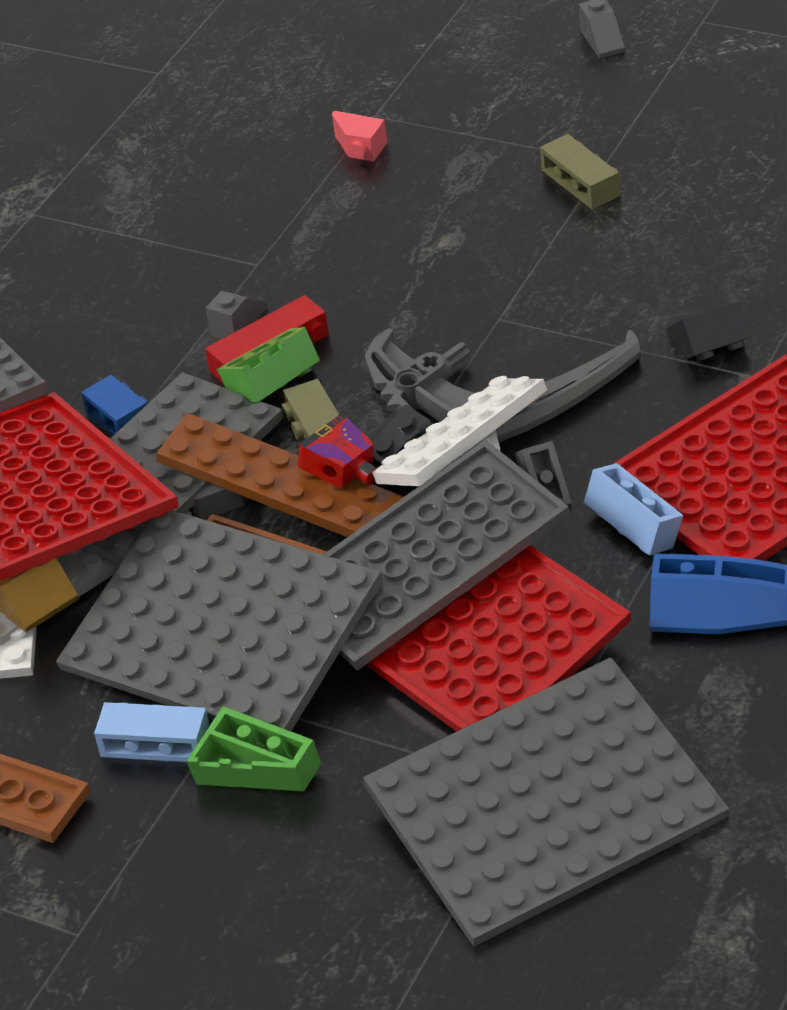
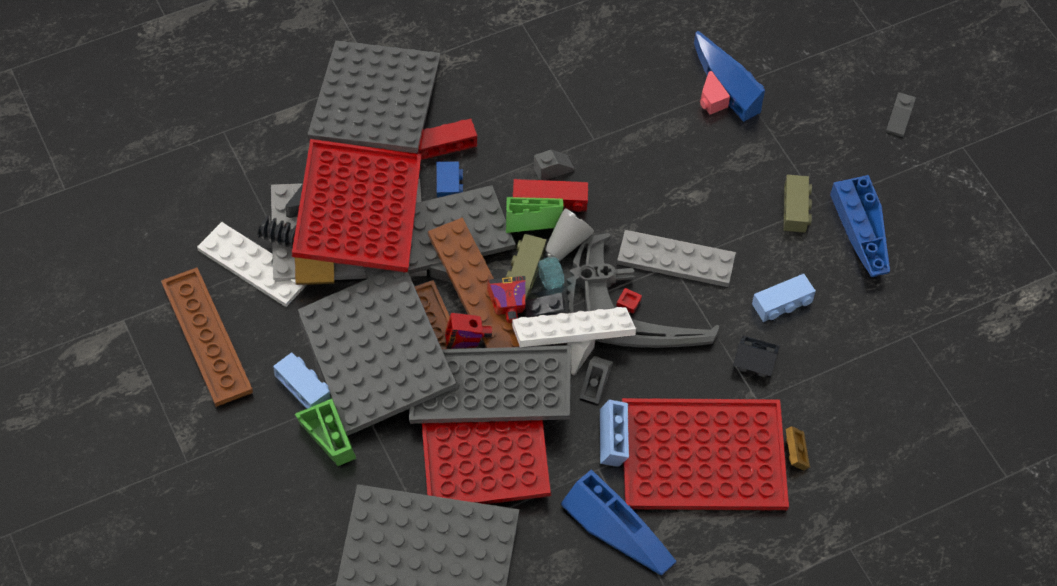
camera: 30 degrees right, 15 degrees up
(73, 362) = (447, 139): none -> red brick
(322, 521) = (465, 331): none -> red torso
(340, 355) = (567, 235): none -> light grey cone
(363, 406) = (551, 273): none -> clear light blue gear
(396, 99) = (744, 90): none -> blue wedge
(484, 374) = (629, 300): none -> red plate
(497, 307) = (676, 258): none -> light grey plate
(673, 261) = (783, 297): none -> light blue brick
(678, 140) = (863, 222): none -> blue wedge

